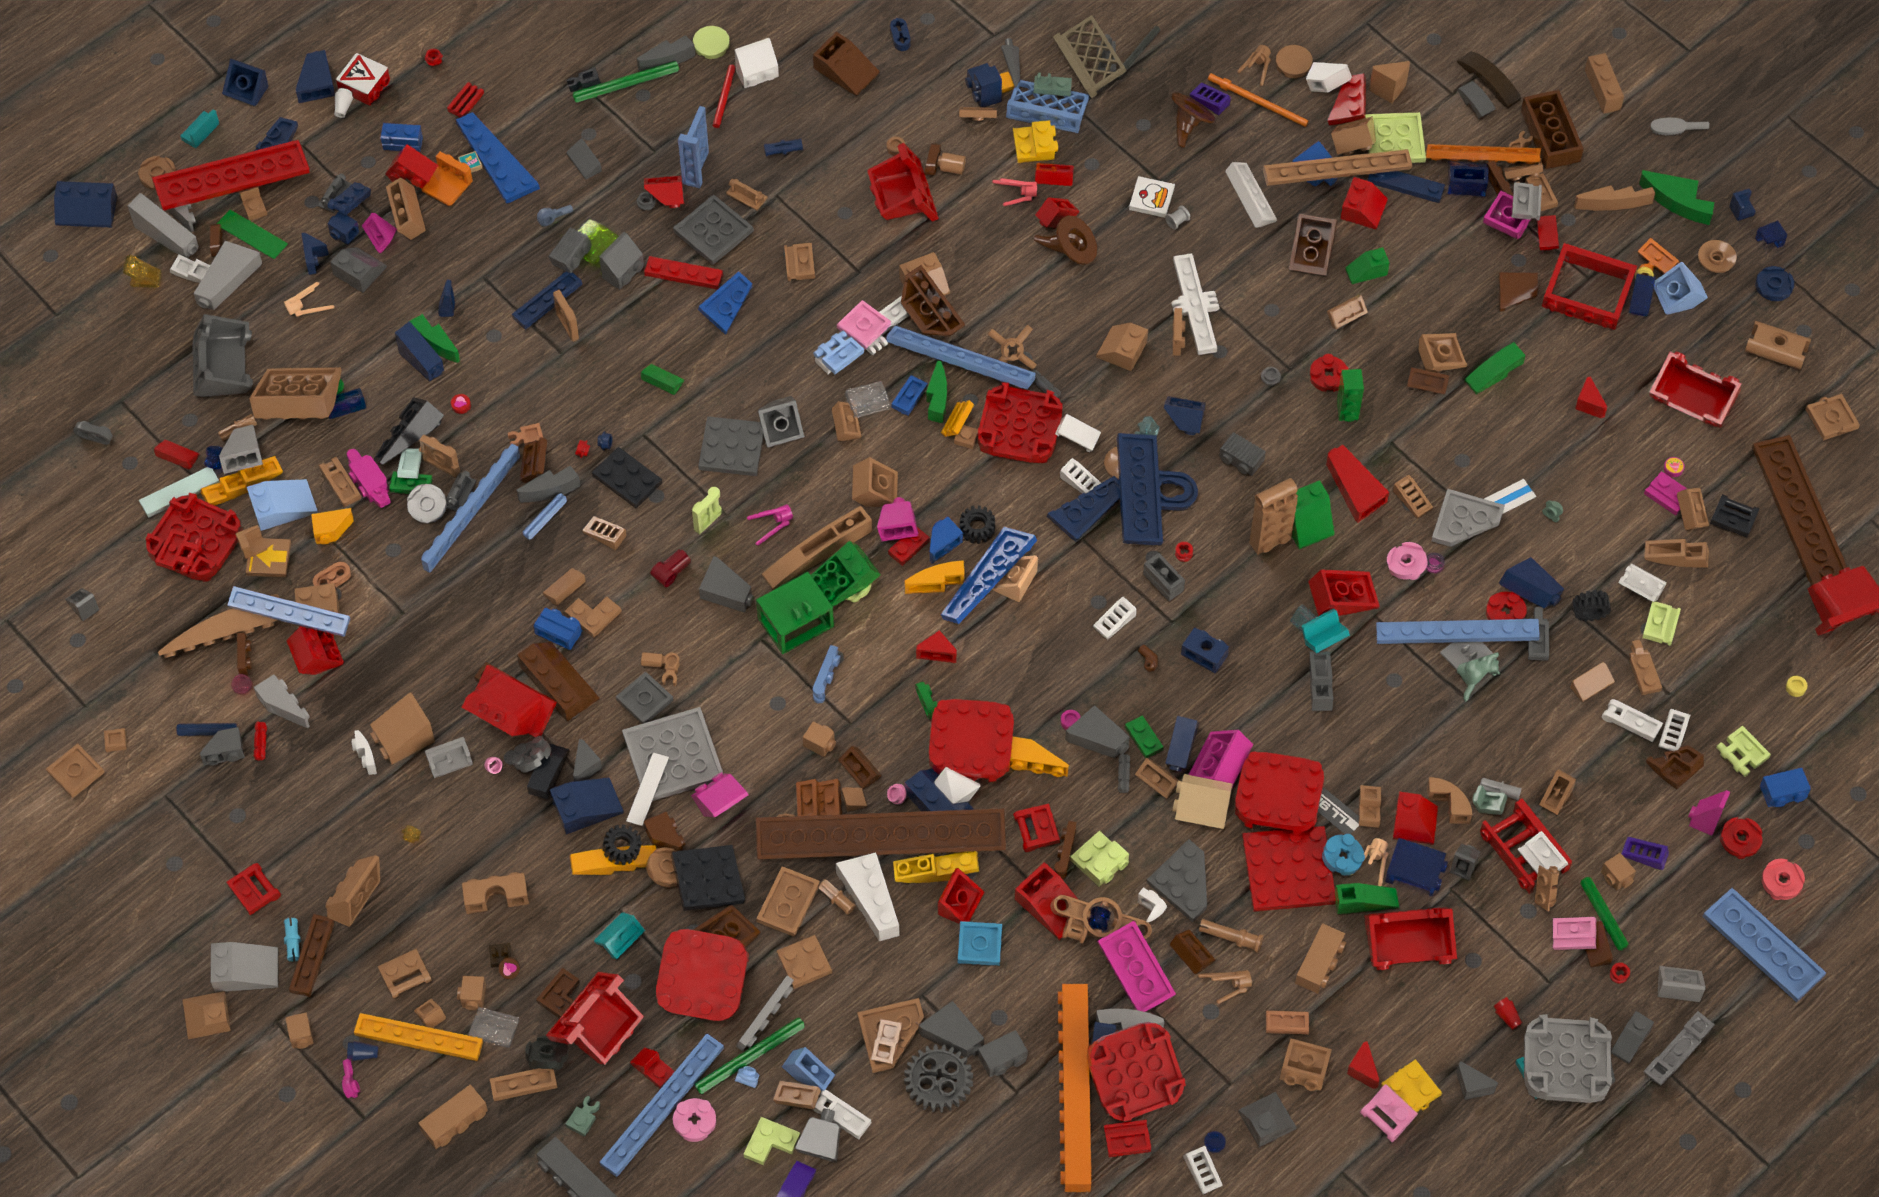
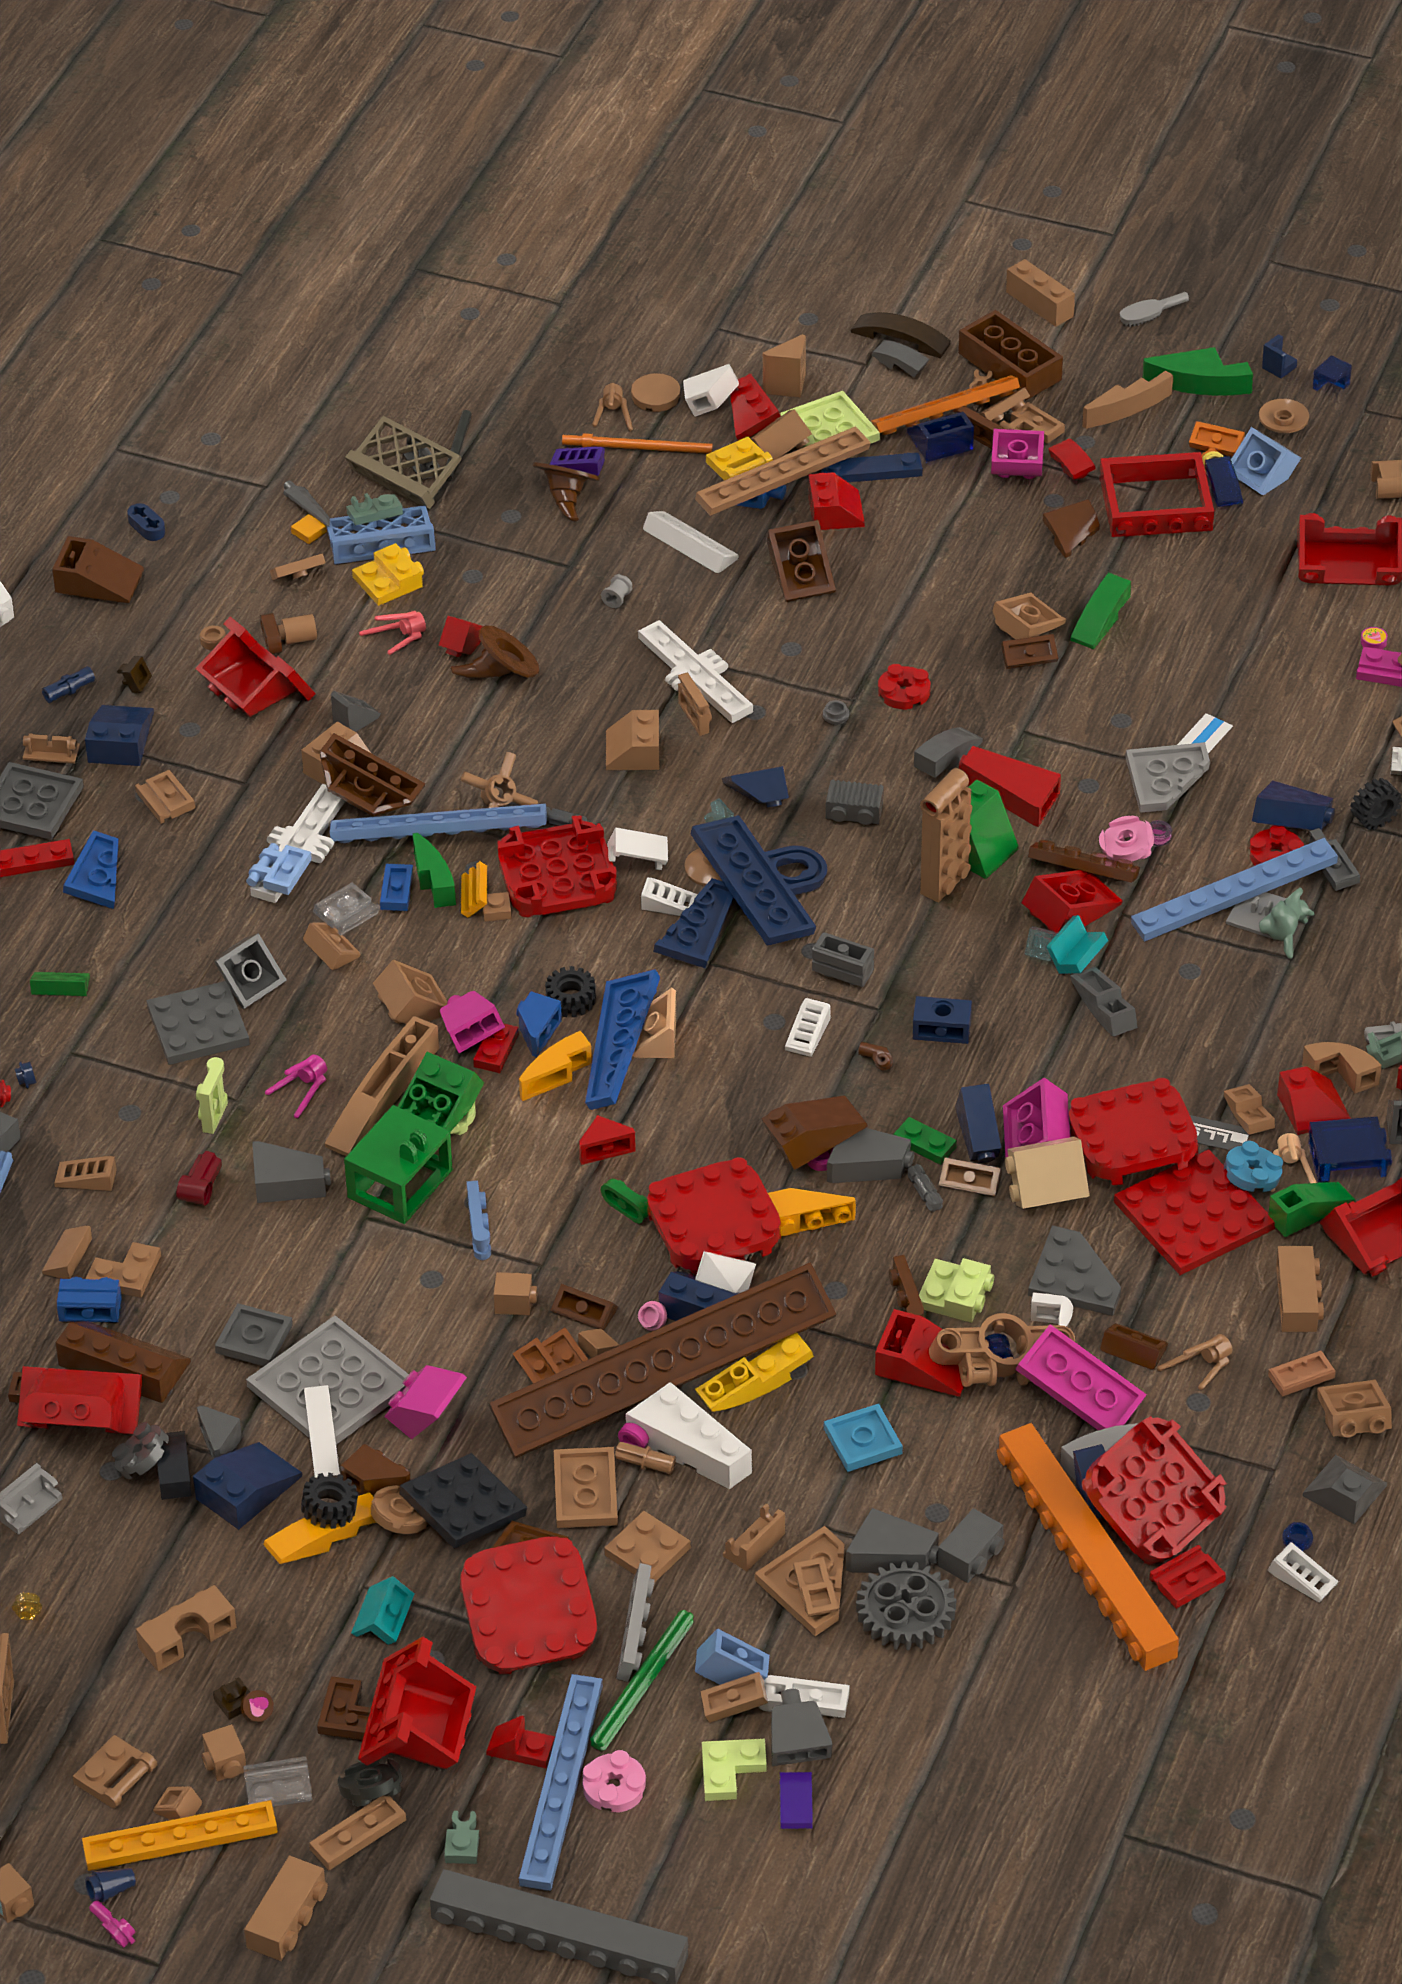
camera: 25 degrees left, 15 degrees down
(495, 767) = (97, 1488): bright pink hinge -> none
(627, 477) = (78, 1105): black plate -> none
(670, 661) = (262, 1283): medium nougat bar -> none
(747, 1076) = (655, 1705): light blue plate -> none
(795, 199) = (118, 735): none -> dark blue slope
(829, 156) = (135, 674): none -> dark brown tile
(836, 878) = (633, 1435): none -> dark pink tile
(864, 324) = (294, 827): bright pink plate -> none
(873, 987) = (756, 1539): none -> medium nougat hinge
(953, 244) = (352, 711): none -> dark grey slope
(959, 898) = (807, 1397): red slope -> none
(985, 84) = (290, 532): dark blue brick -> none
(1043, 825) = (860, 1279): red plate -> none
(1054, 174) = (434, 600): red slope -> none
(1071, 699) = (812, 1127): none -> reddish brown slope
(1151, 197) = (570, 583): white tile -> none
(1184, 557) = (847, 922): red bush -> none
(1241, 937) = (1187, 1305): medium nougat pin -> none
(1312, 142) = (737, 458): none -> yellow plate
(1327, 437) = (944, 750): none -> dark grey slope
(1347, 311) = (886, 615): medium nougat plate -> none
(1350, 395) = (951, 688): green brick -> none
(1368, 266) = (882, 561): green slope -> none
(1369, 566) = (1094, 863): none -> reddish brown plate
(1412, 486) = (1077, 764): medium nougat slope -> none
(1526, 201) = (1033, 426): light grey plate -> none
(1553, 510) = (1264, 722): sand green plate -> none
(1590, 400) = (1235, 604): red slope -> none
(1774, 283) = (1365, 423): dark blue tile -> none

